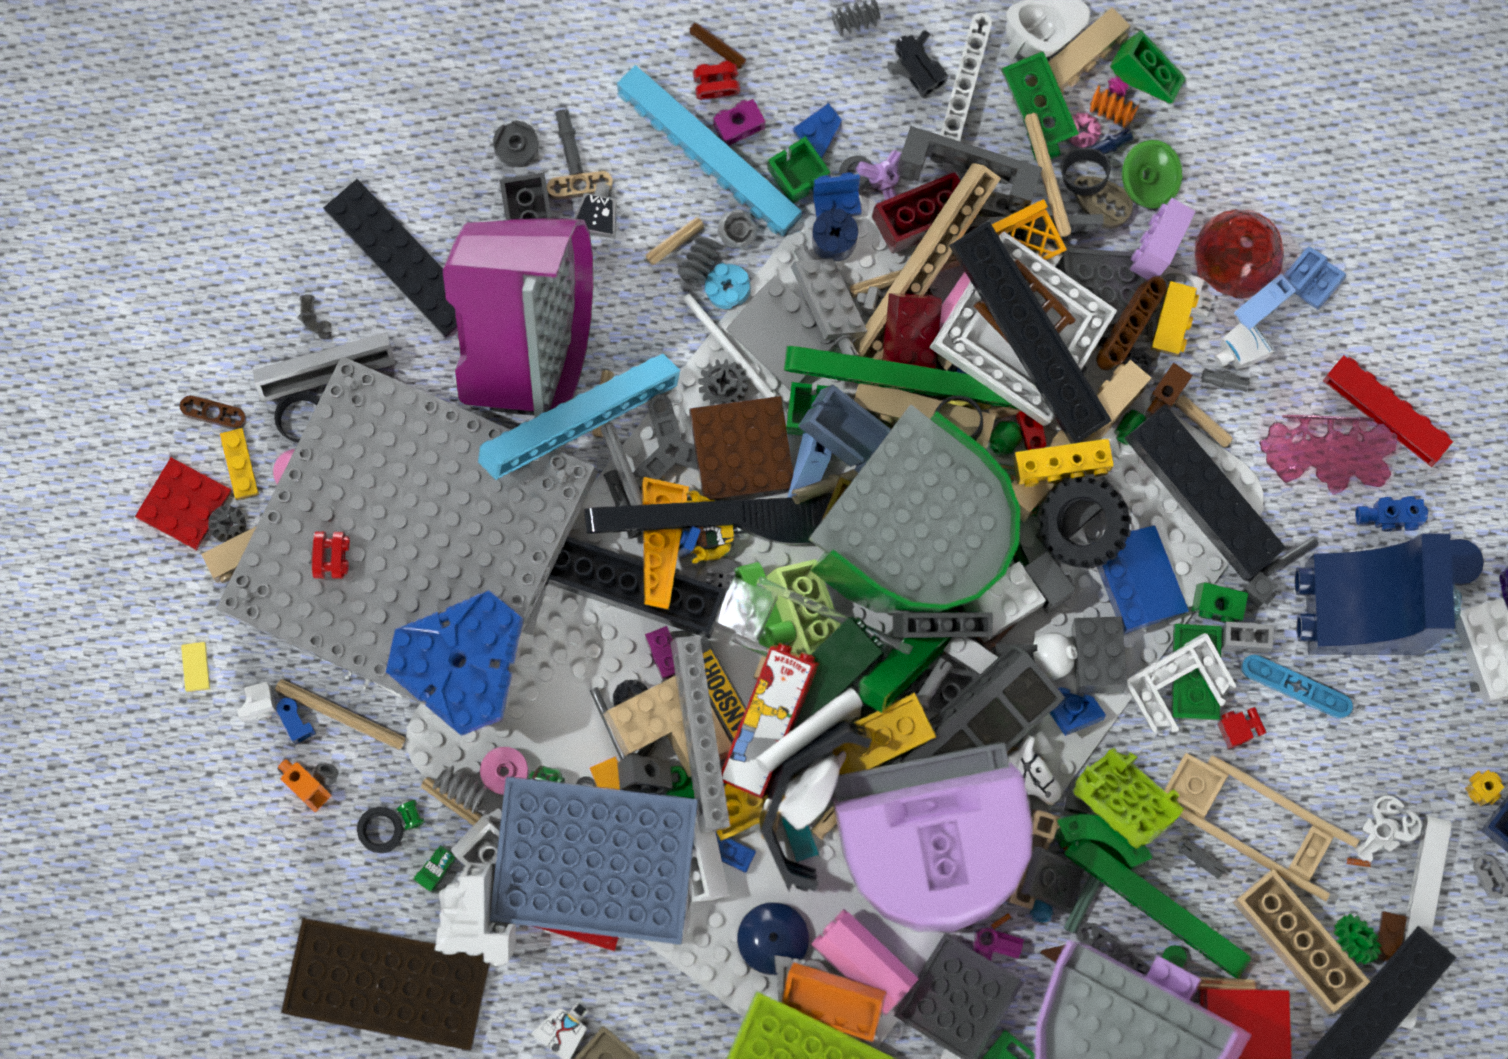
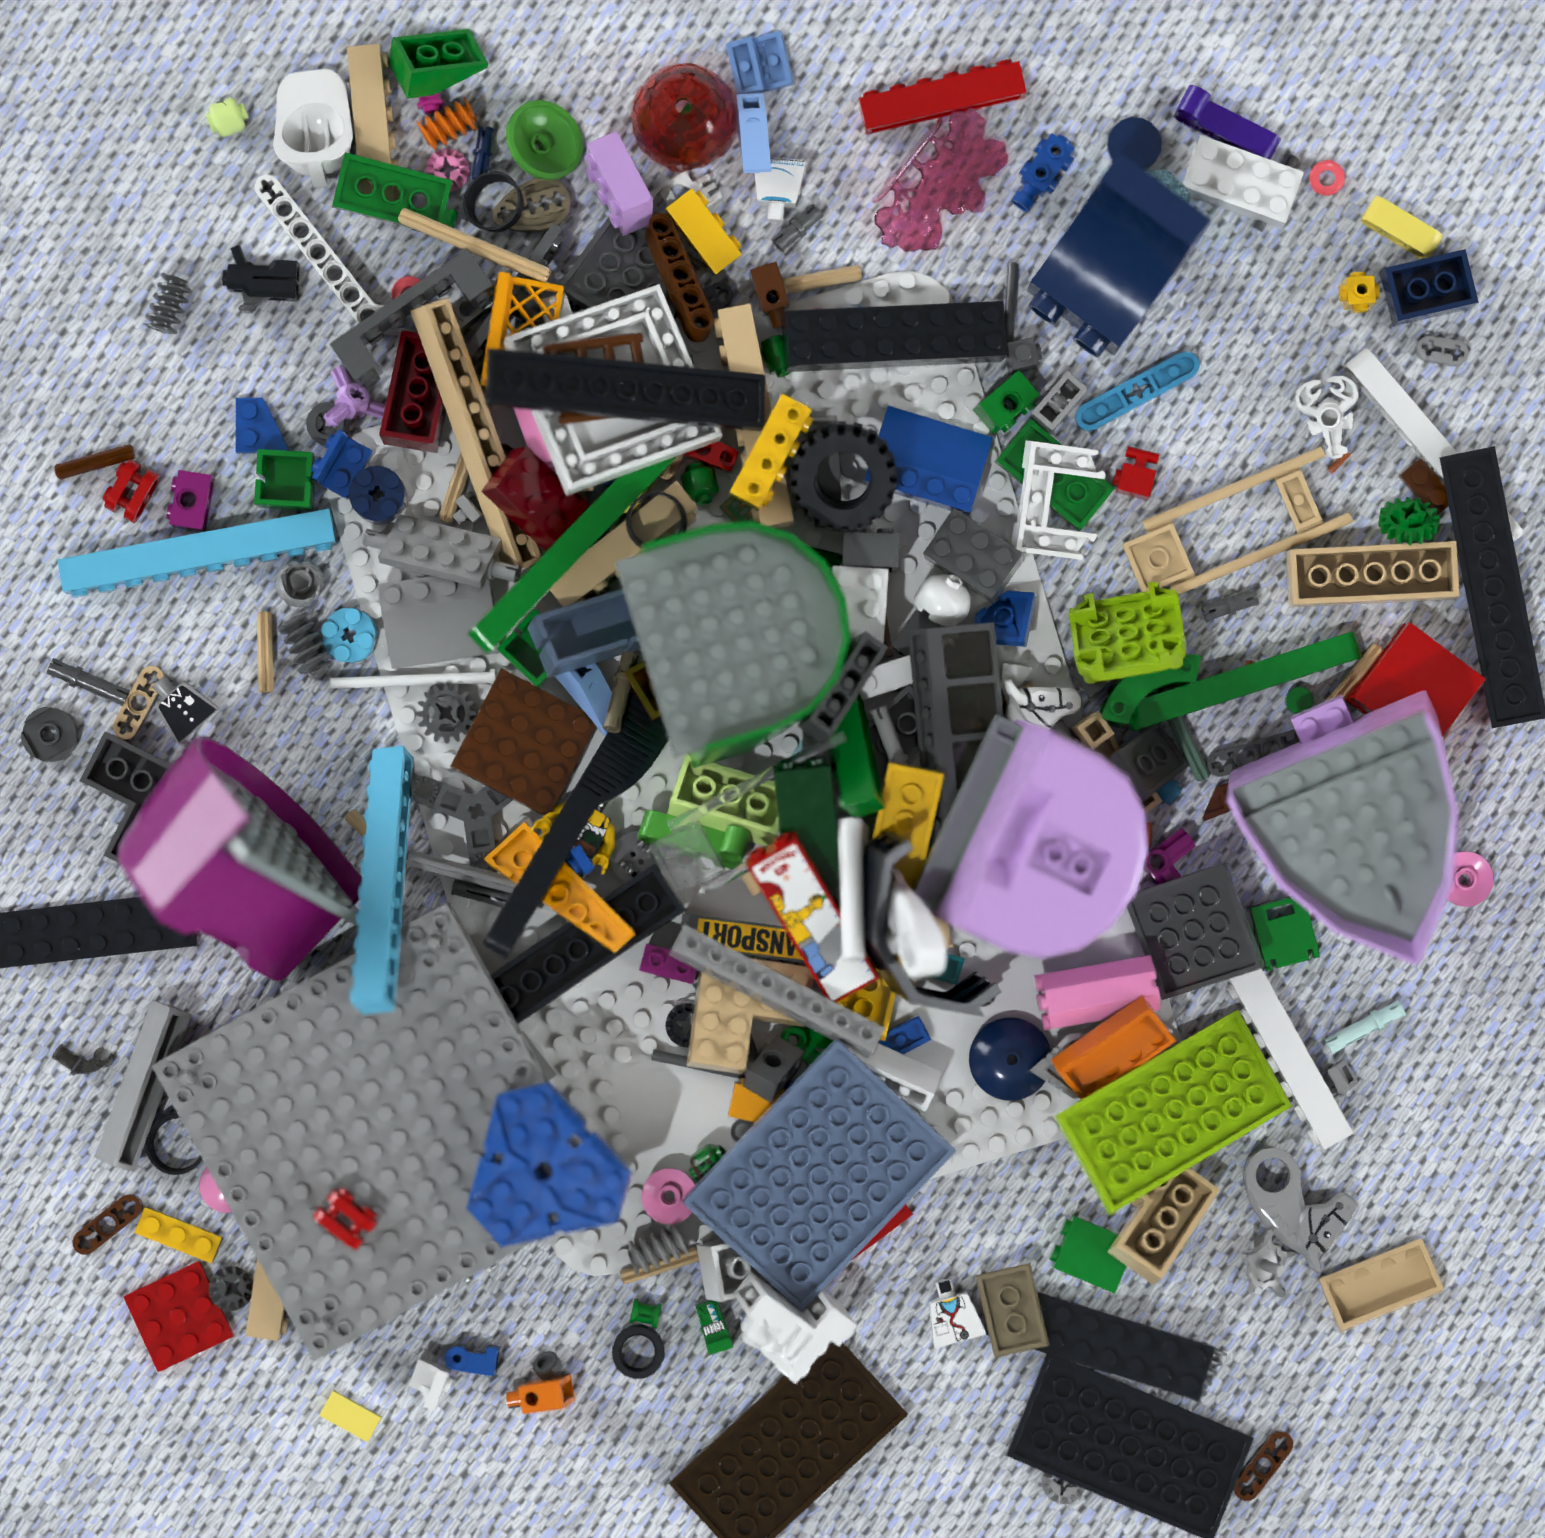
camera: 50 degrees left, 10 degrees up
(340, 714) = (498, 1311): tan axle -> none

